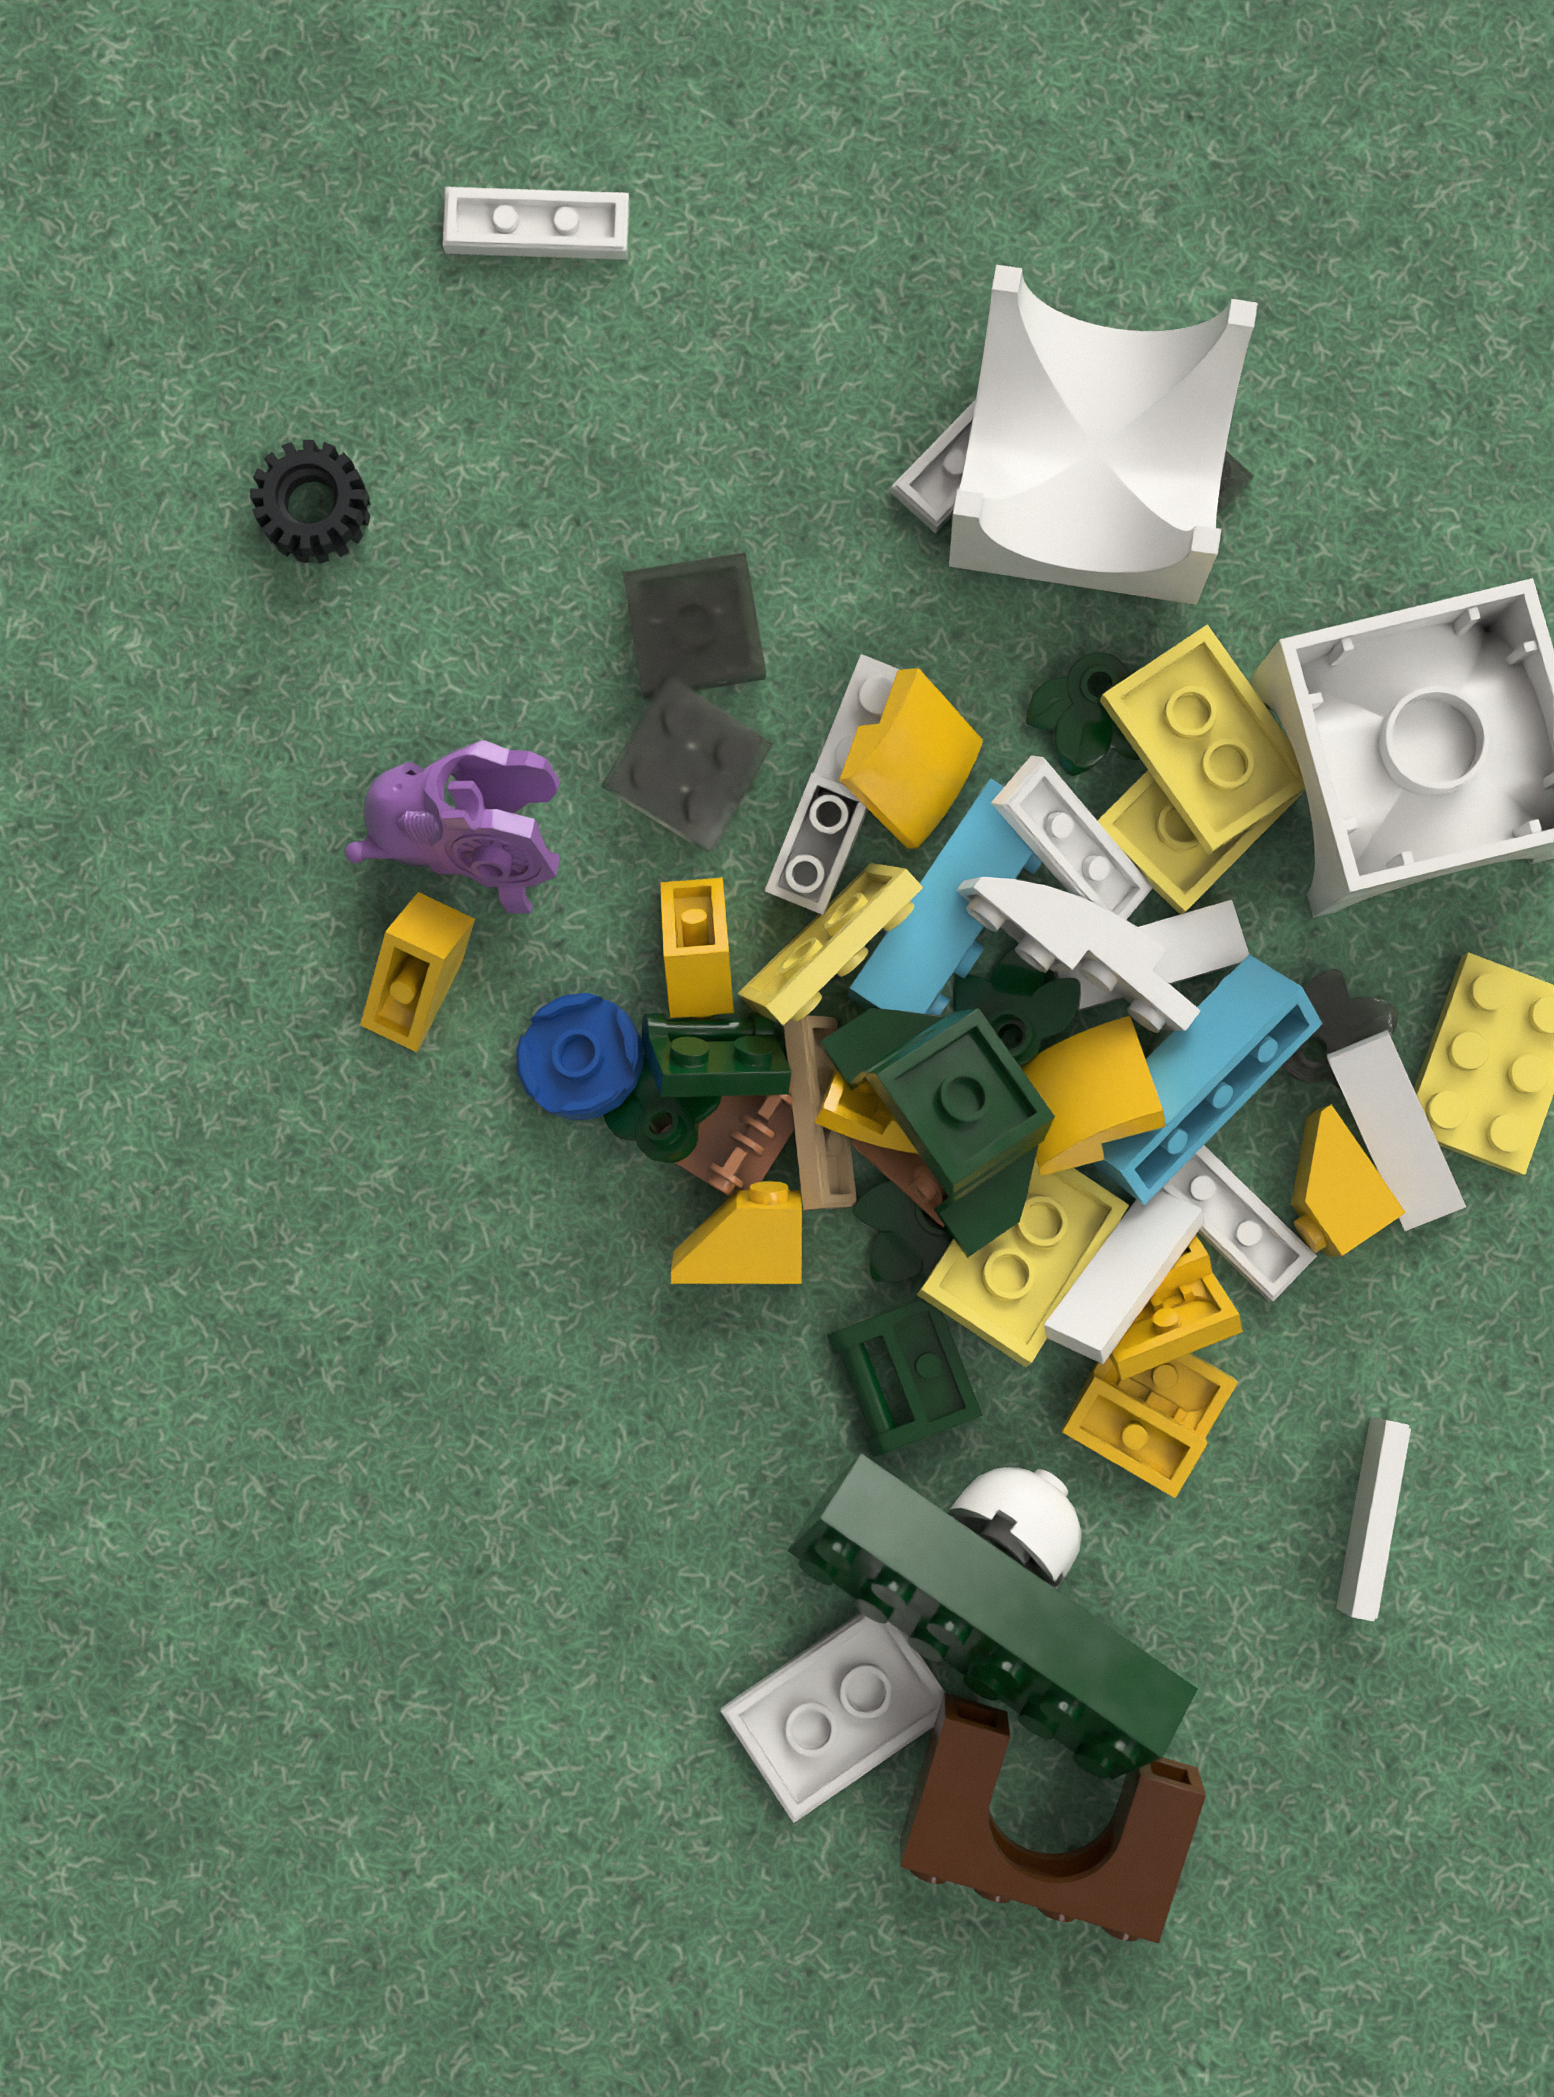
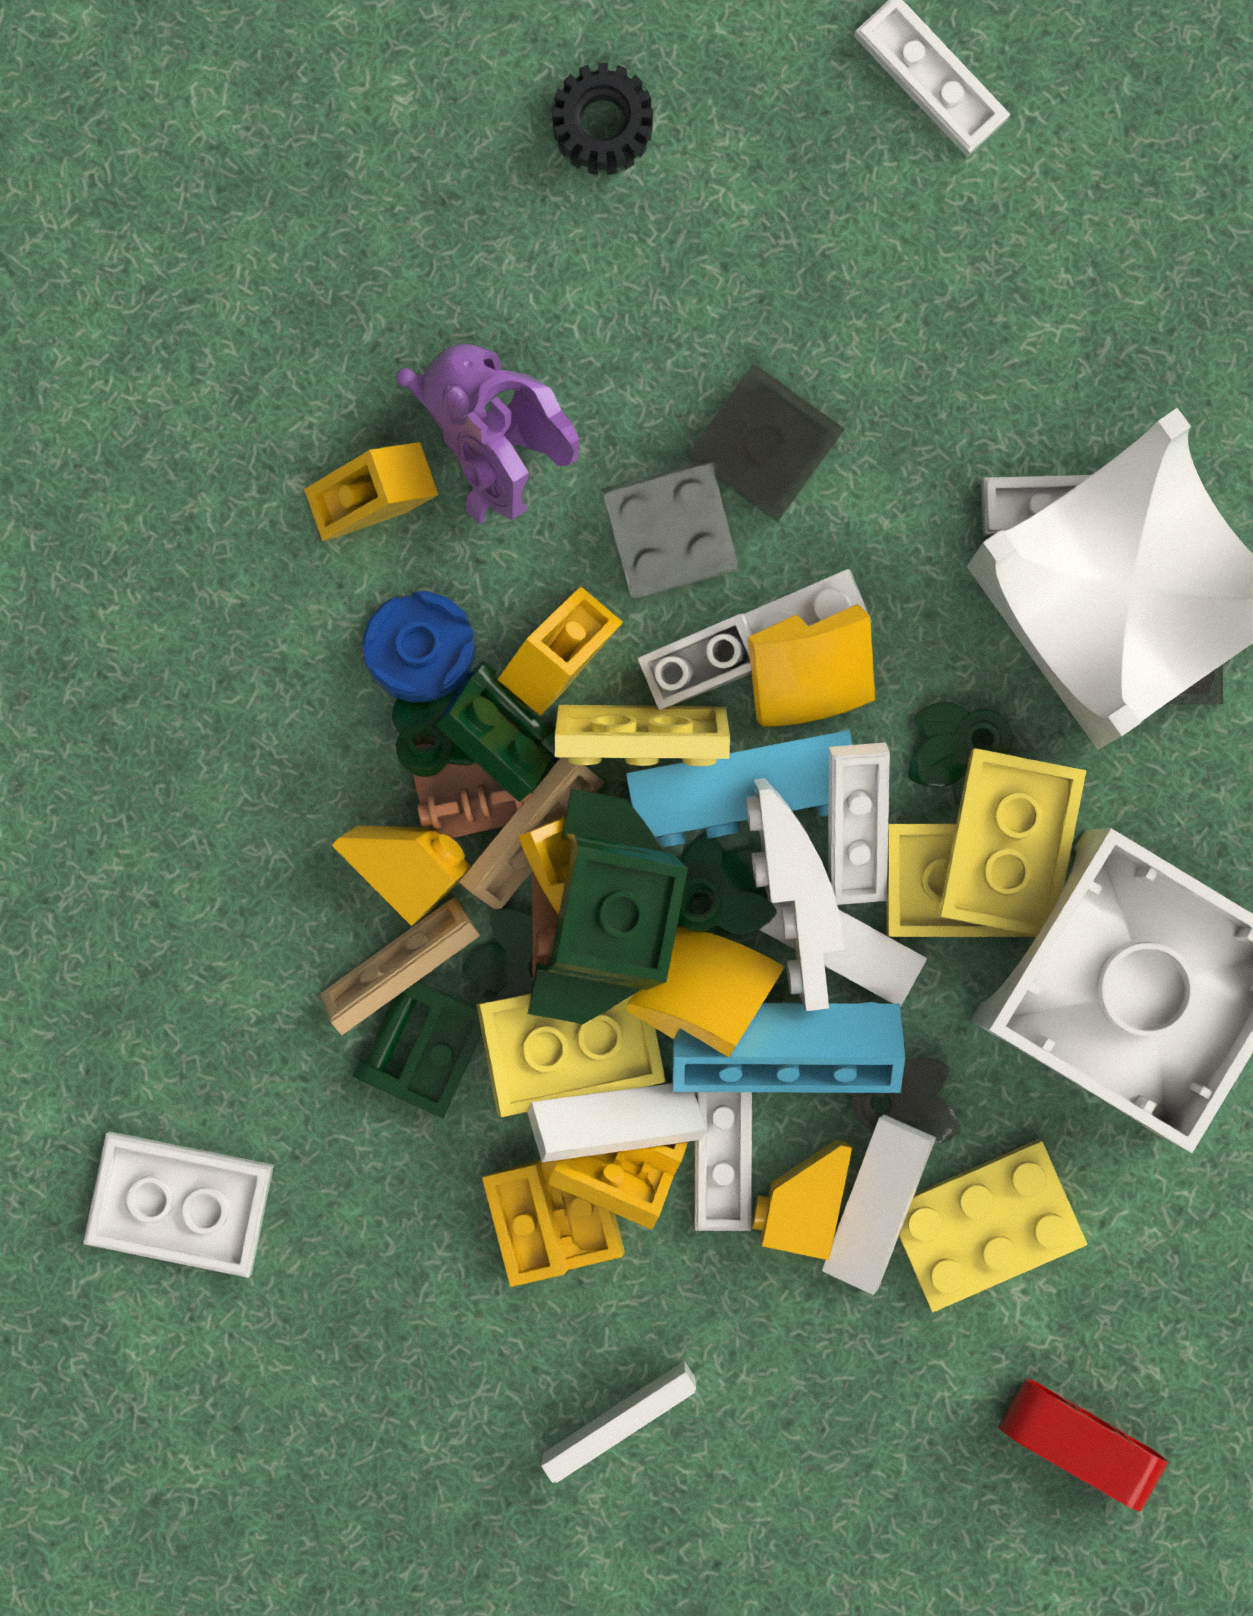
camera: 50 degrees right, 5 degrees up
(821, 1328) = (398, 965): none -> tan tile
(992, 1622) = (318, 1246): dark green brick -> none
(1024, 1518) = (398, 1206): white cylinder -> none
(1115, 1881) = (237, 1473): reddish brown arch -> none

